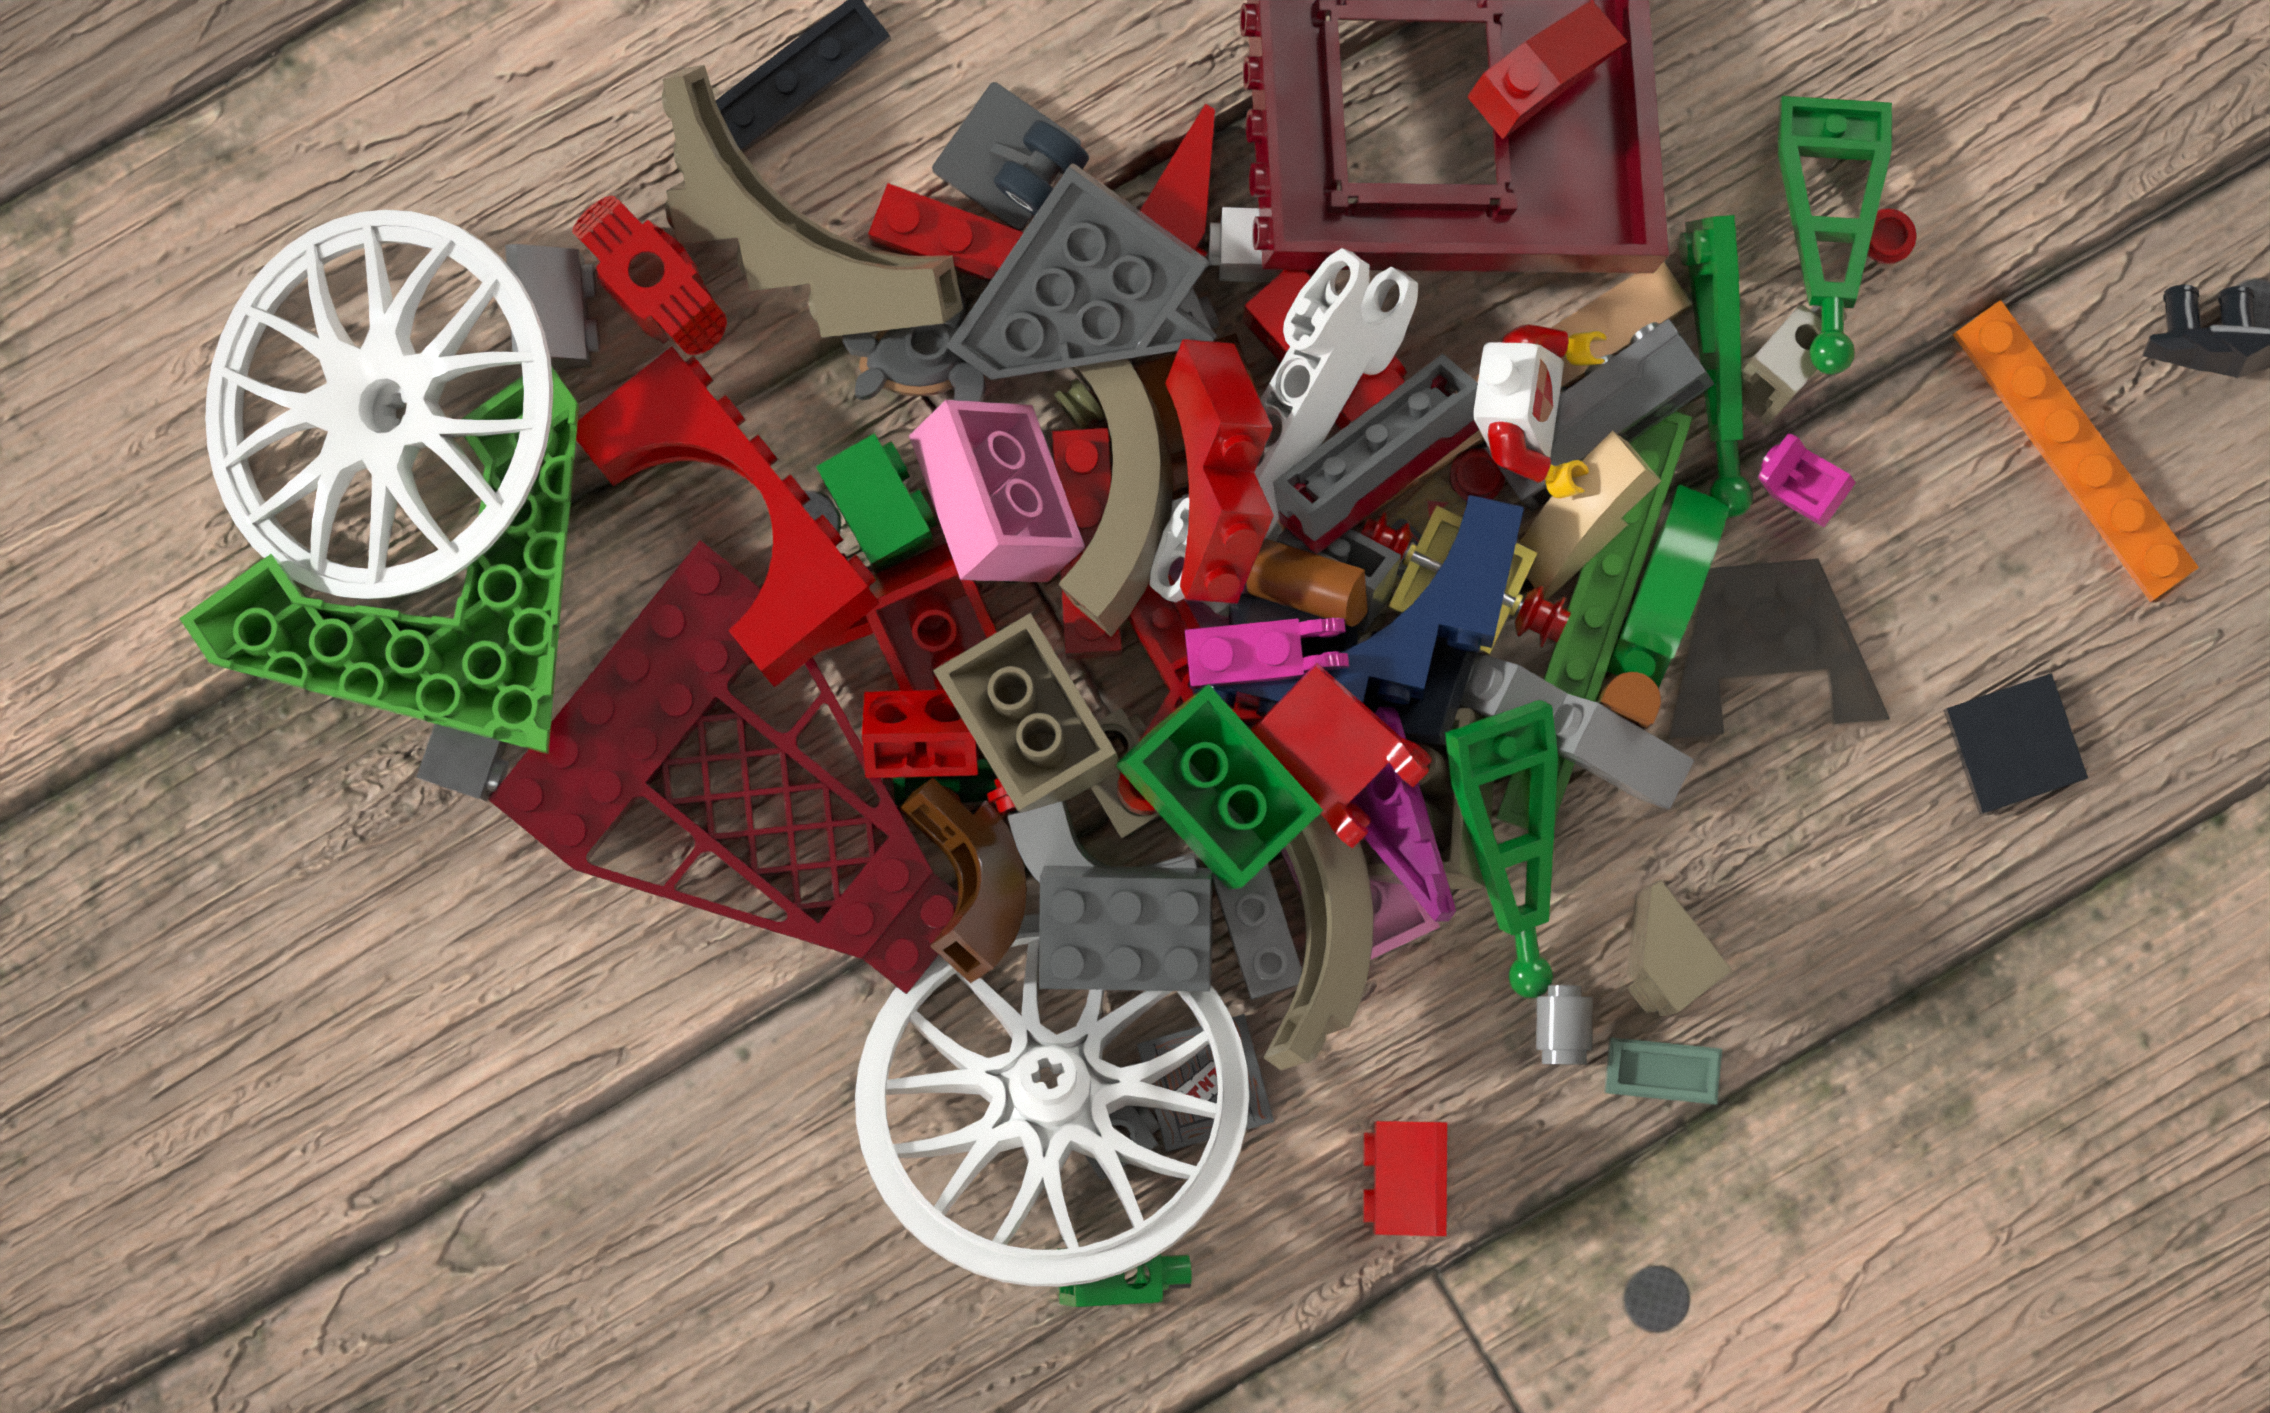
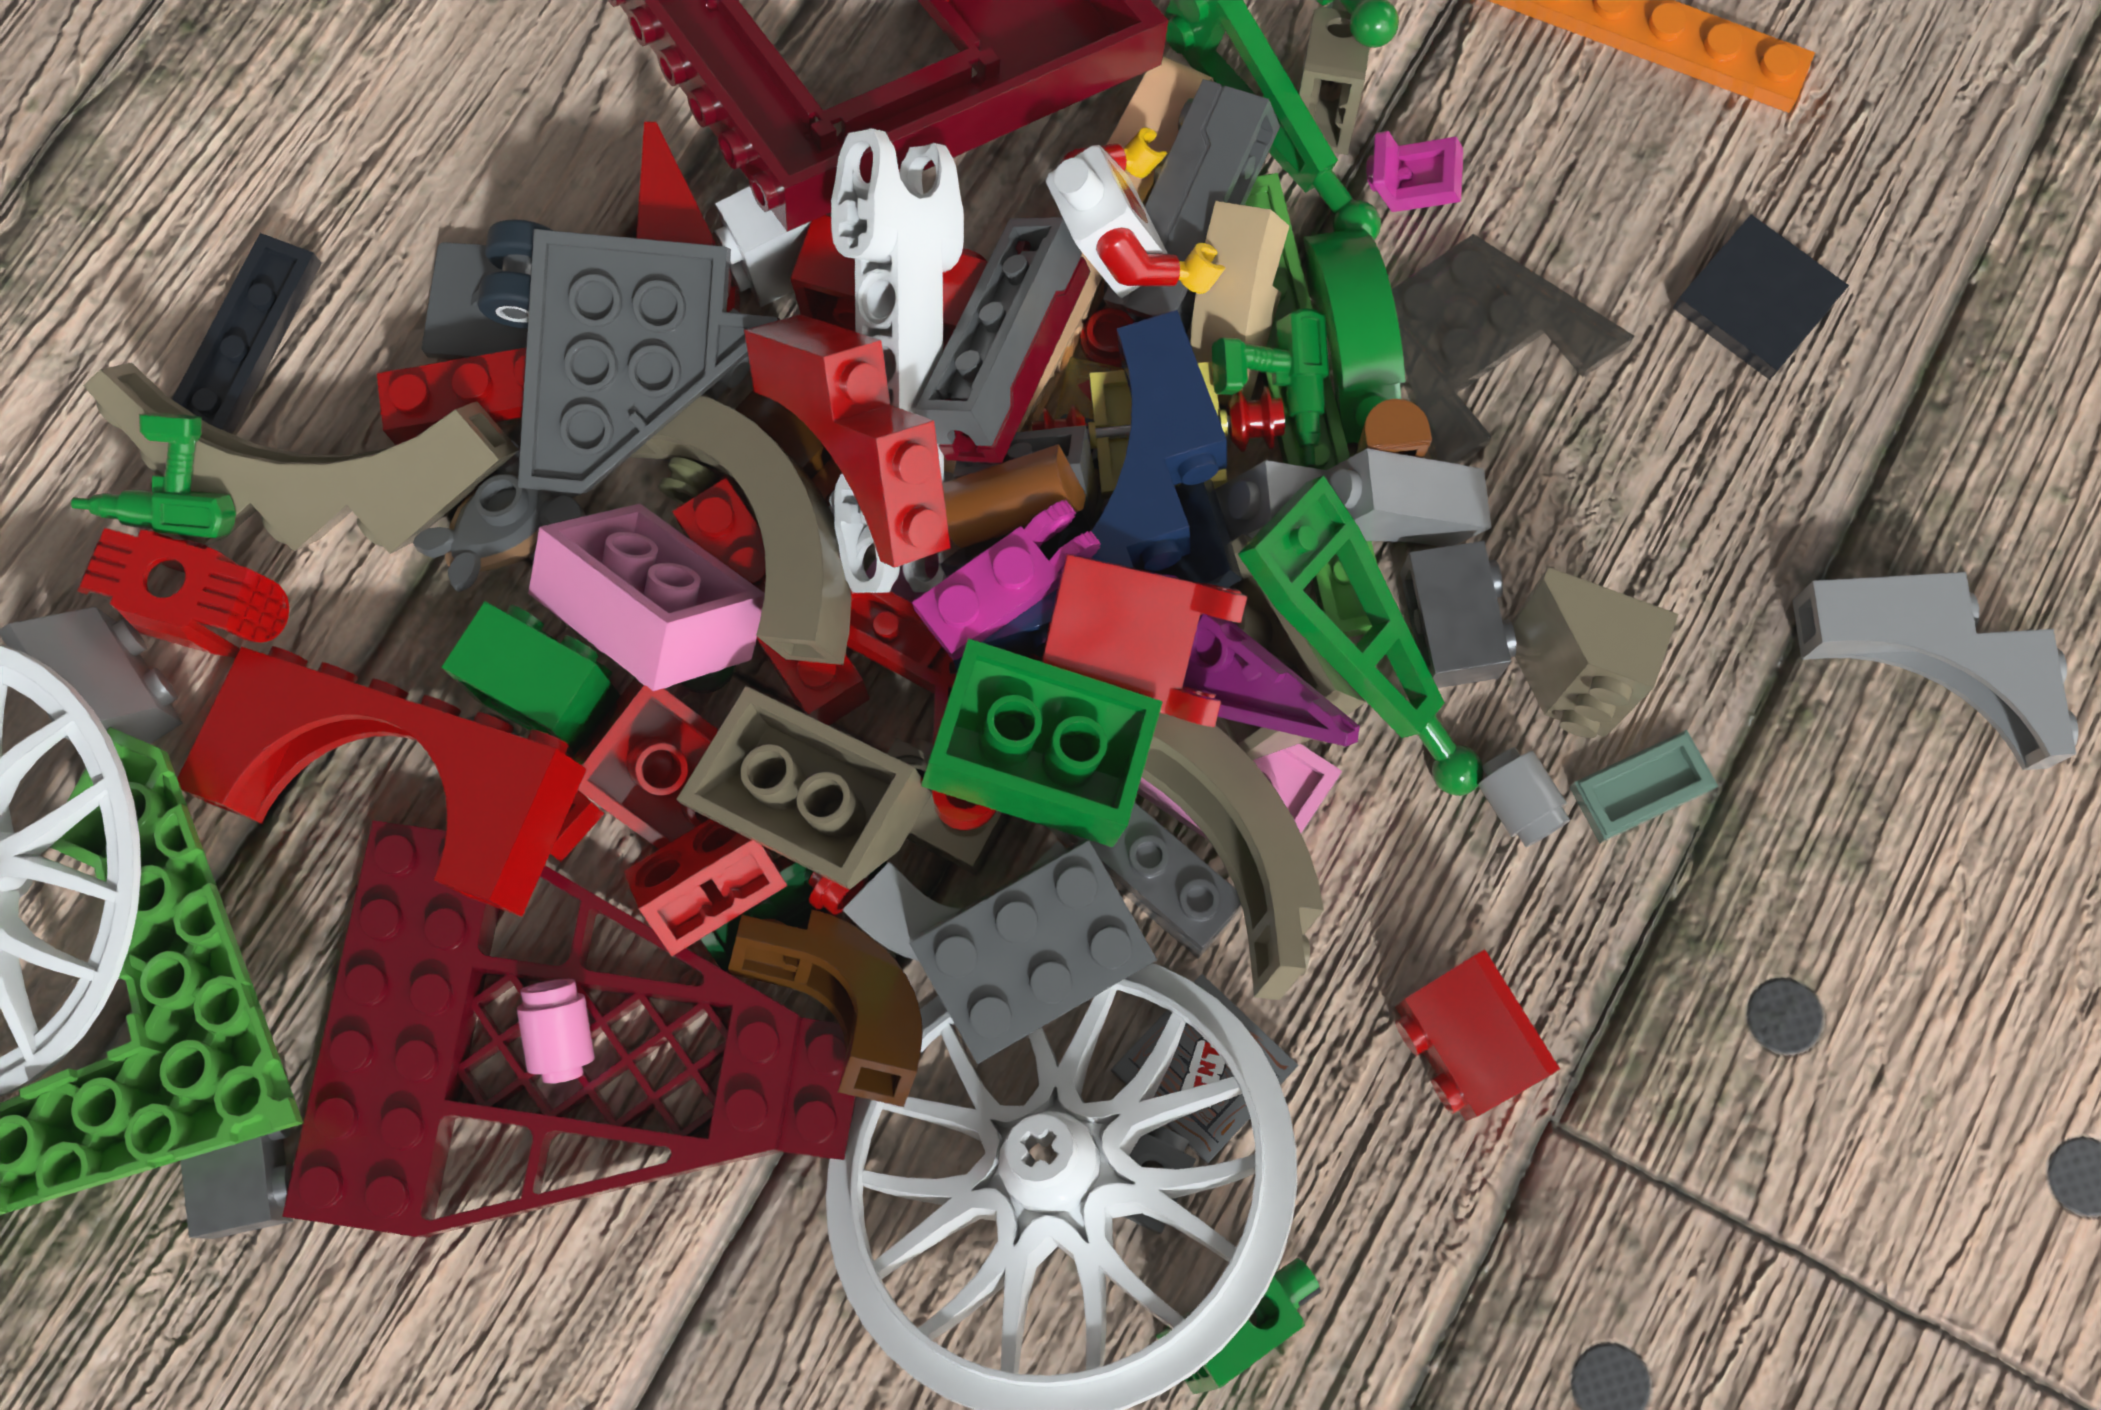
camera: 30 degrees left, 10 degrees down
(679, 208) = (171, 503): none -> green piece
(752, 781) = (555, 1030): none -> bright pink brick
(1600, 593) = (1296, 363): none -> green piece
(1604, 859) = (1457, 613): none -> flat silver brick
(1955, 1081) = (1931, 630): none -> light grey arch

